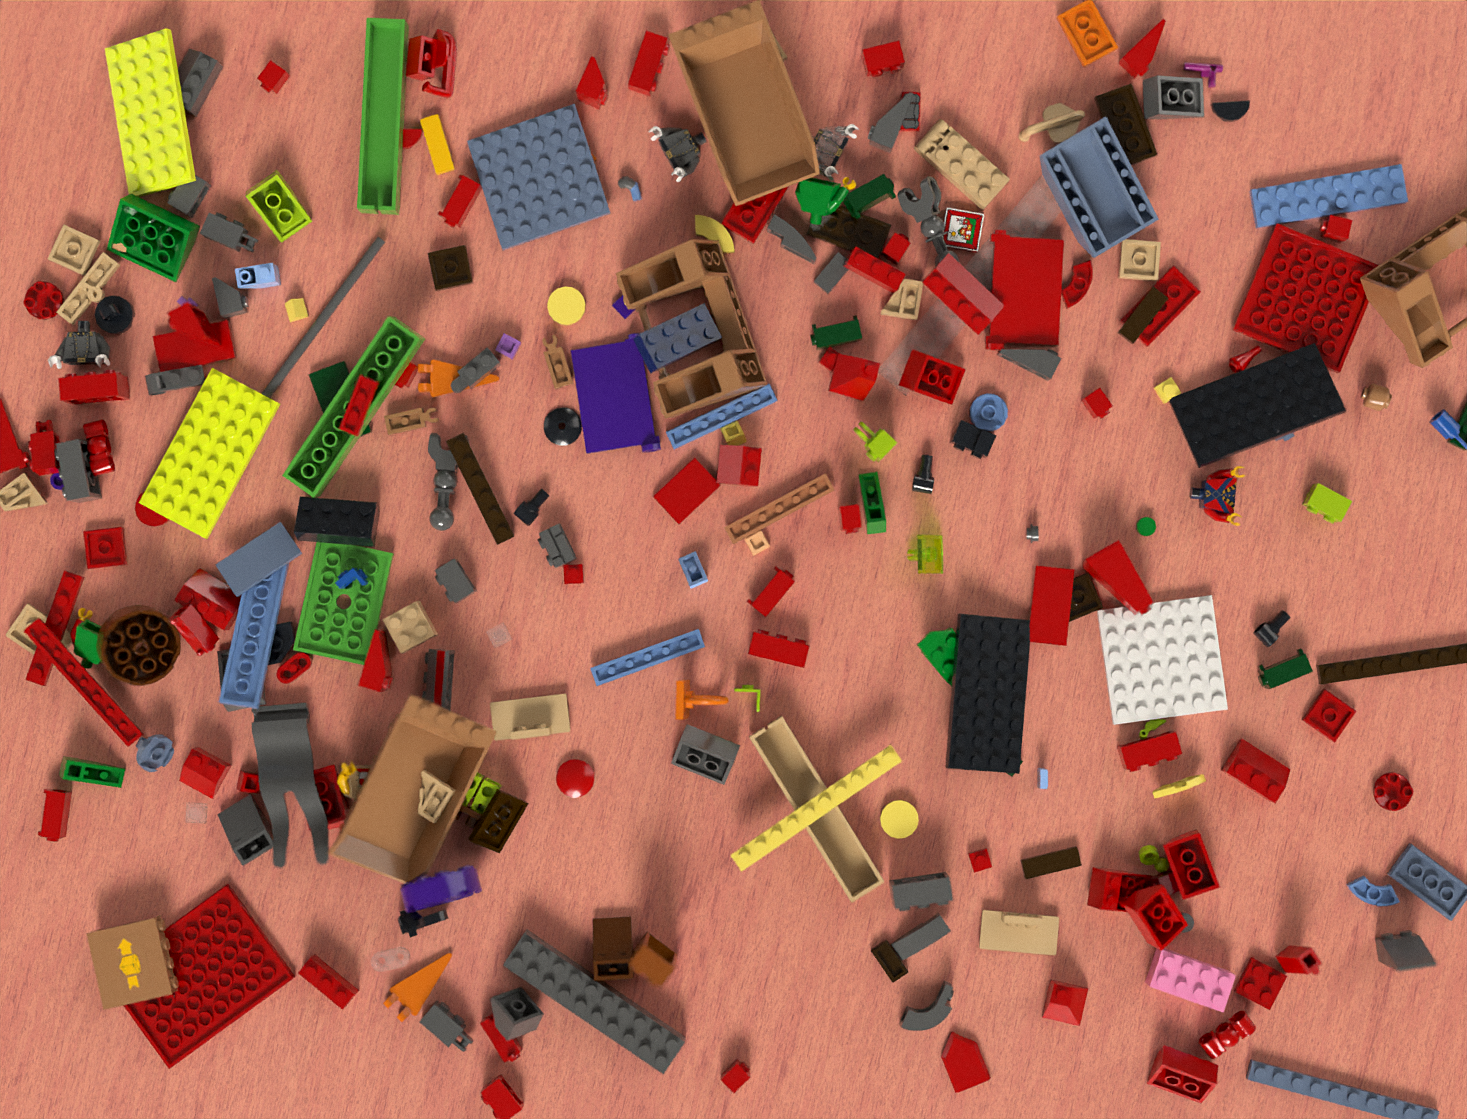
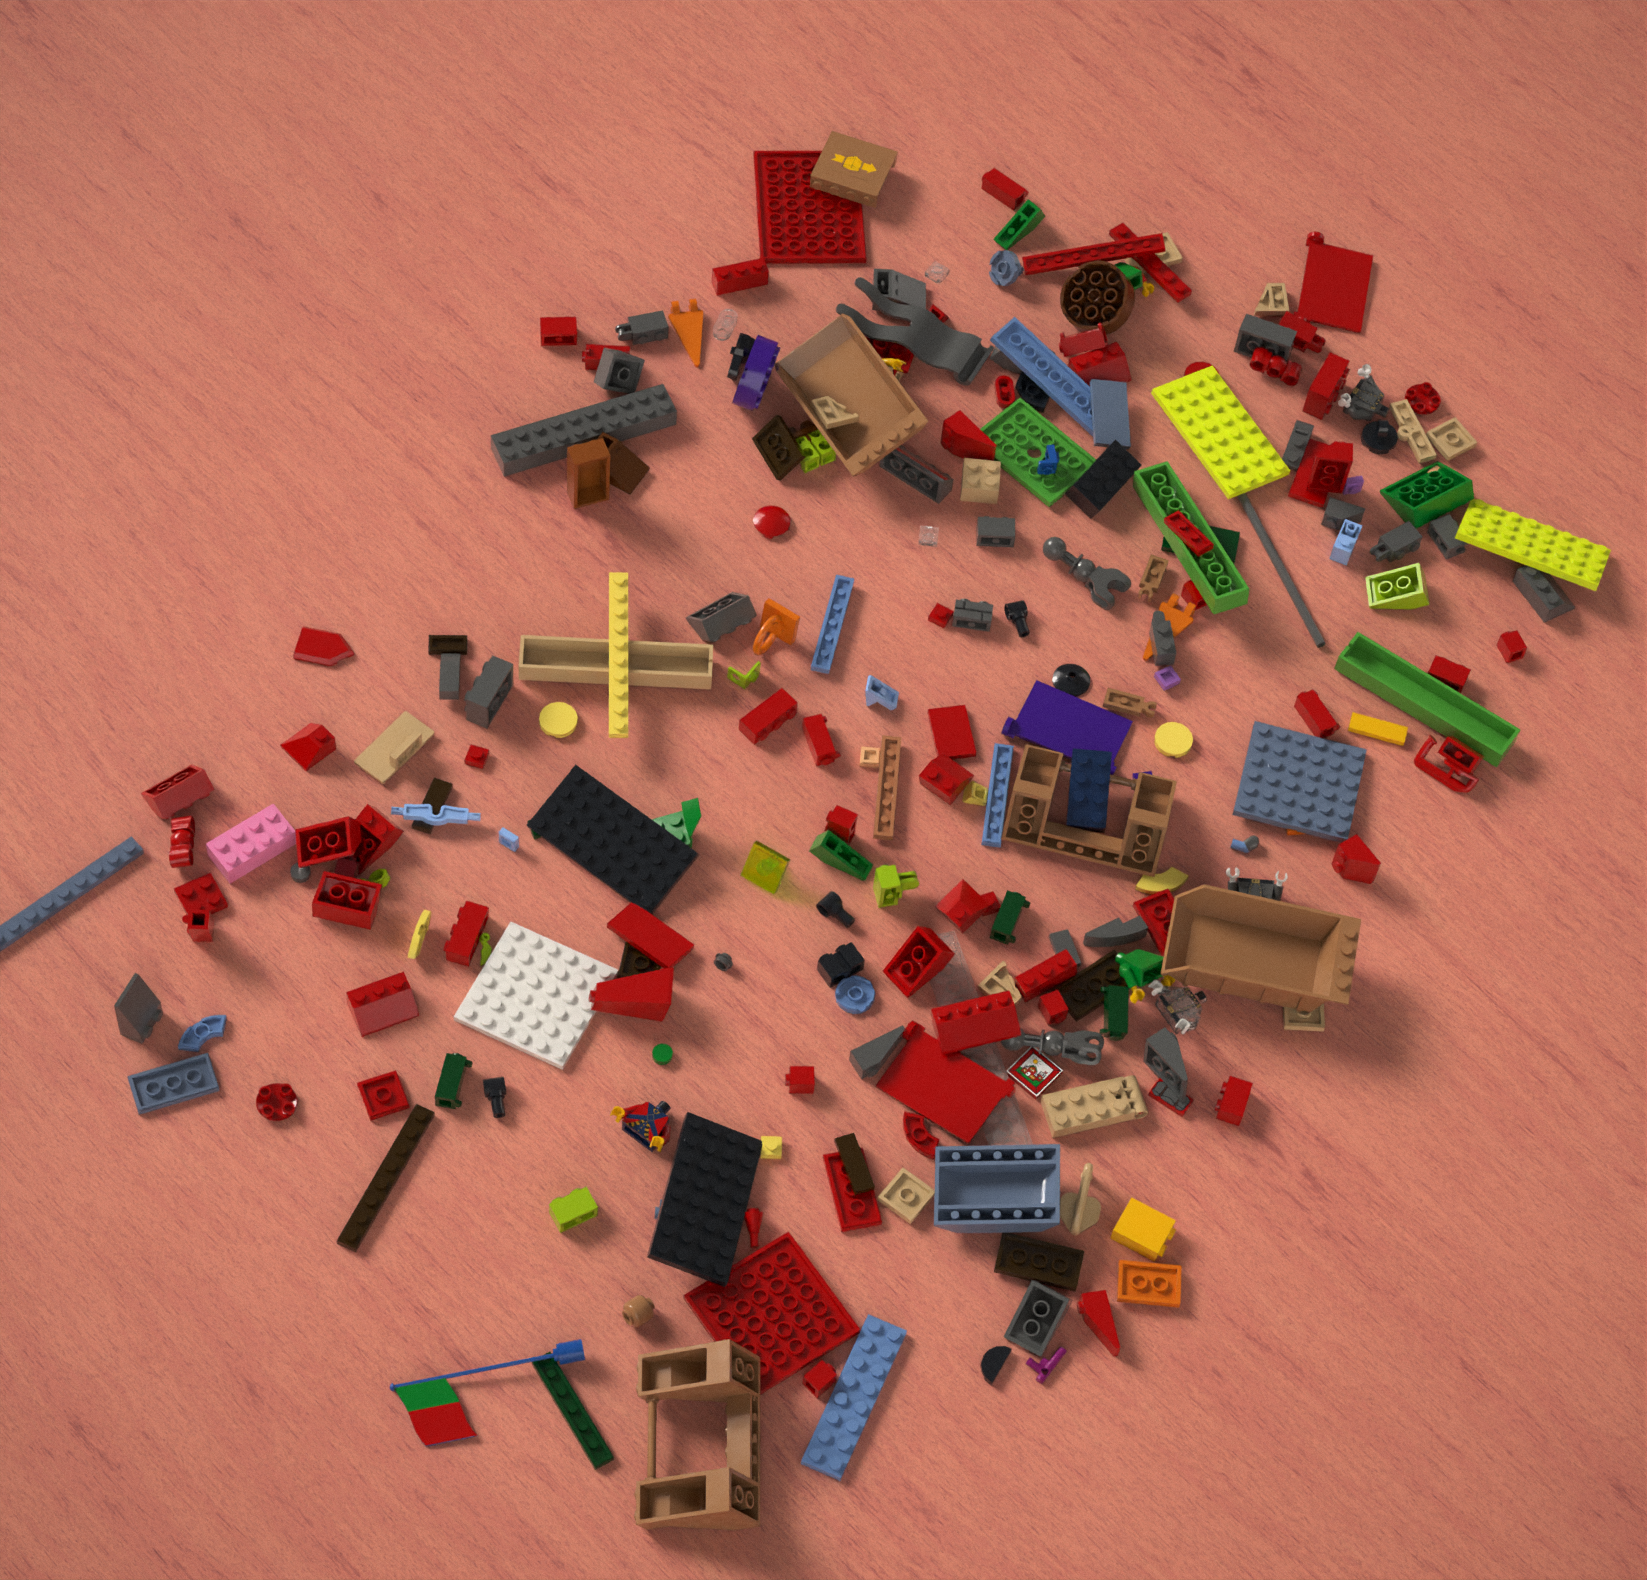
camera: 115 degrees right, 30 degrees down
(105, 547) = (1191, 330): red tile -> none
(204, 772) = (966, 294): red slope -> none
(296, 309) = (1300, 556): light yellow slope -> none
(342, 114) = (1449, 673): none -> red brick
(411, 137) = (1396, 713): red tile -> none
(450, 268) = (1263, 676): dark brown plate -> none
(480, 488) = (1060, 587): dark brown plate -> none
(530, 717) = (844, 518): tan bracket -> none
(649, 63) = (1341, 903): red brick -> none
(736, 1075) = (446, 486): red brick -> none
(930, 1016) = (383, 635): dark grey arch -> none
(1045, 62) = (1144, 1230): none -> yellow brick
(1066, 861) = (424, 813): none -> light blue piece

